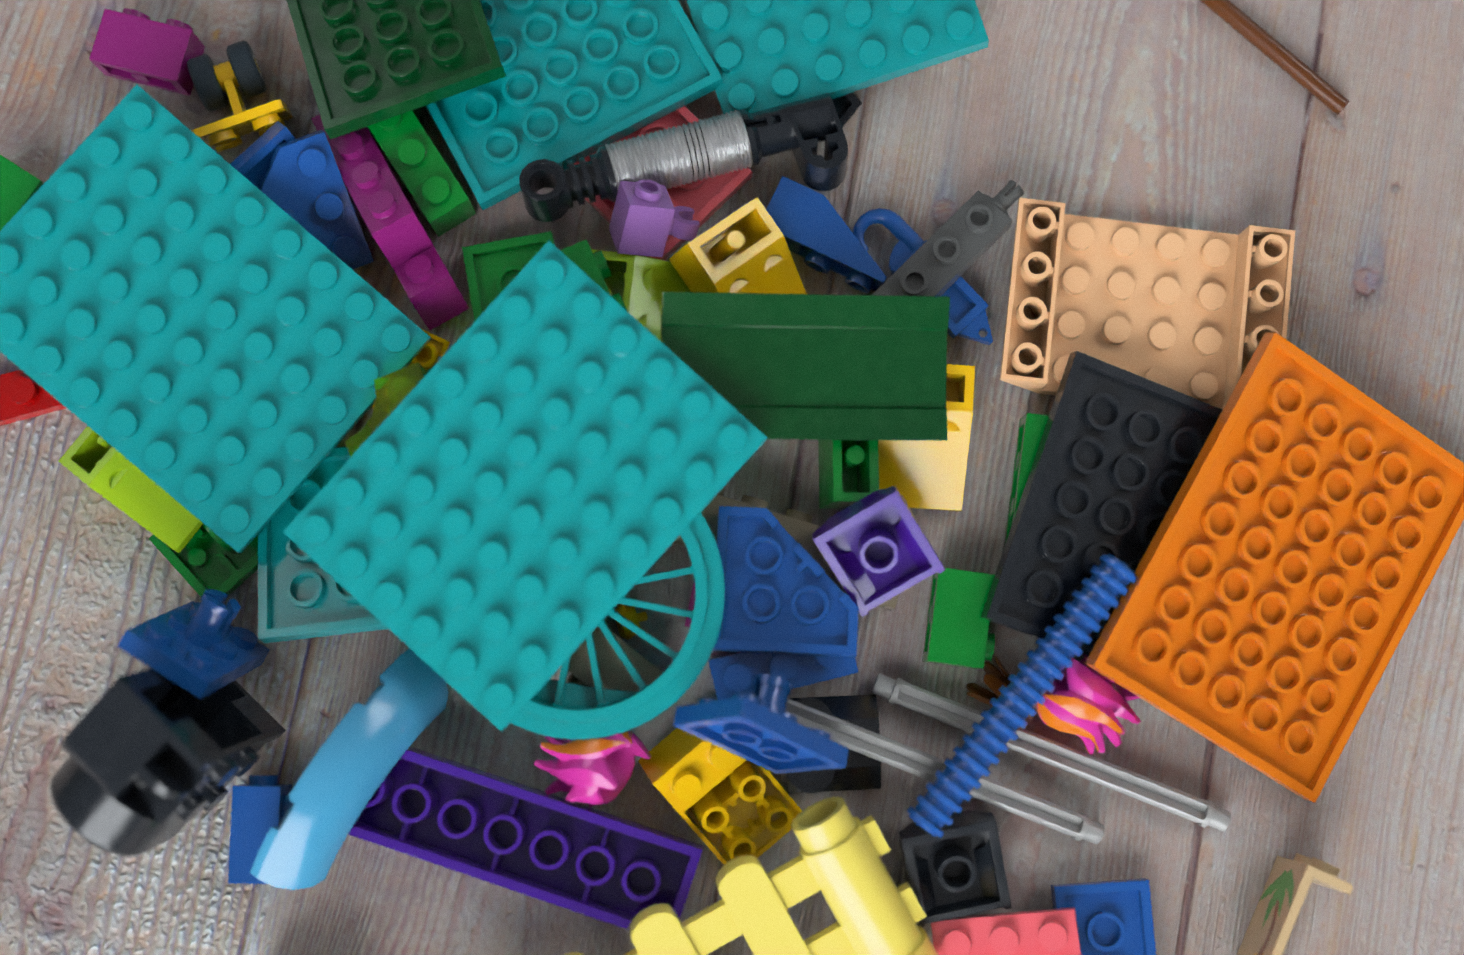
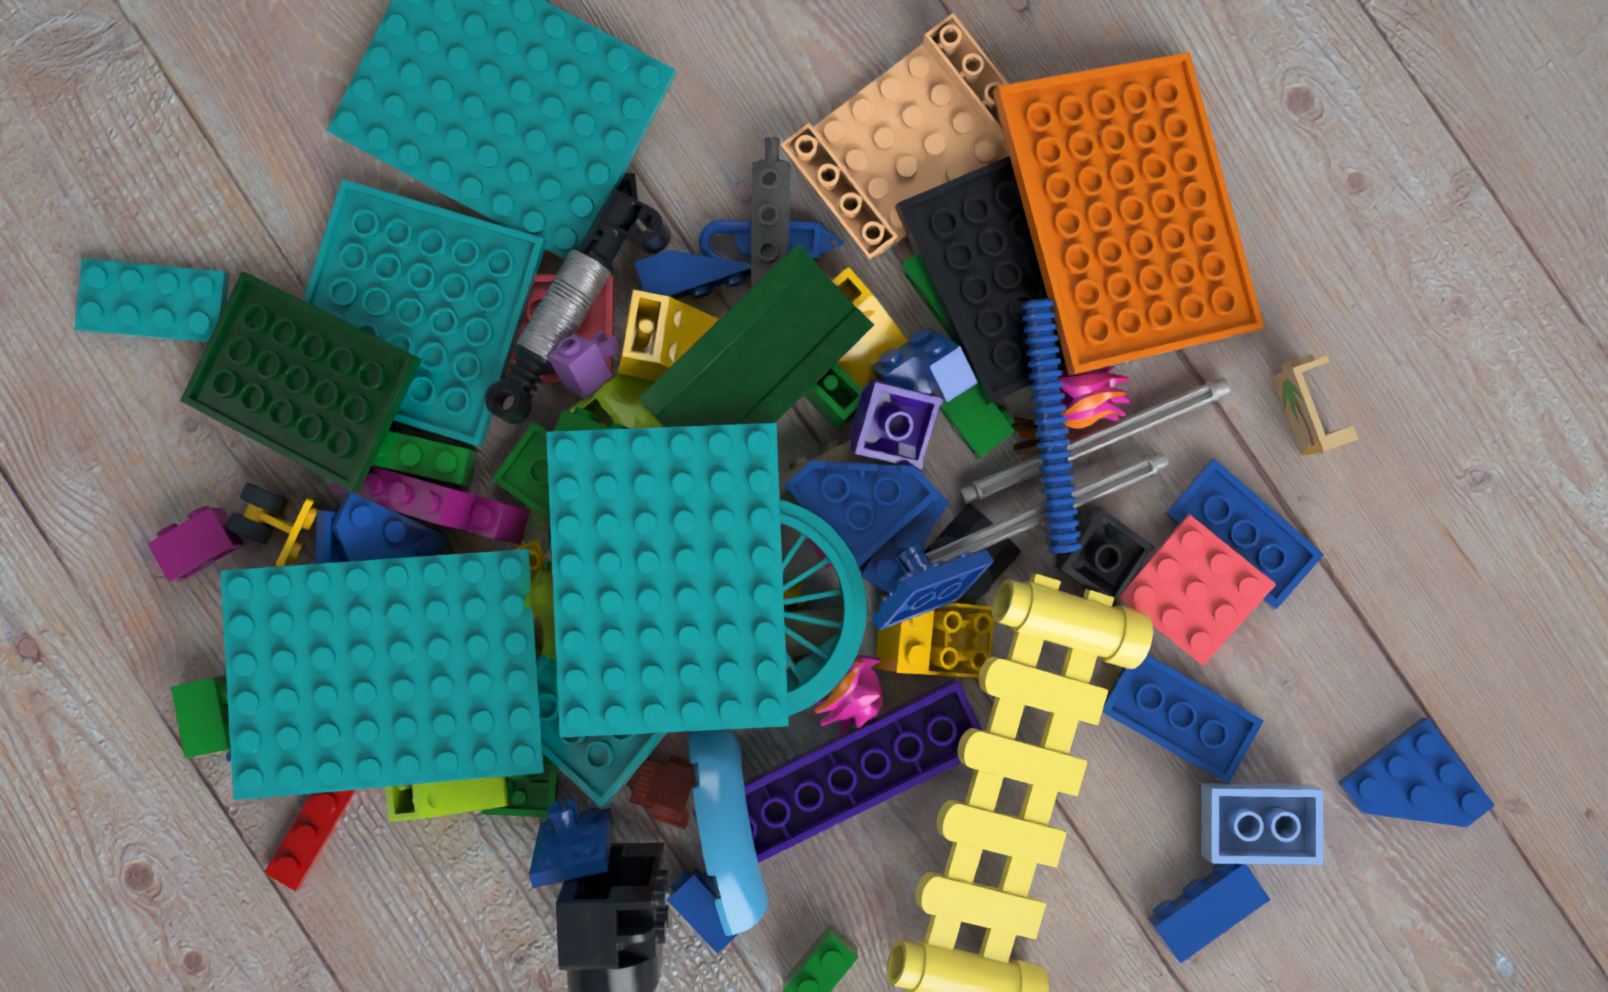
camera: 40 degrees left, 5 degrees up
(333, 682) = (665, 789): none -> clear red piece
(961, 527) = (927, 365): none -> blue brick

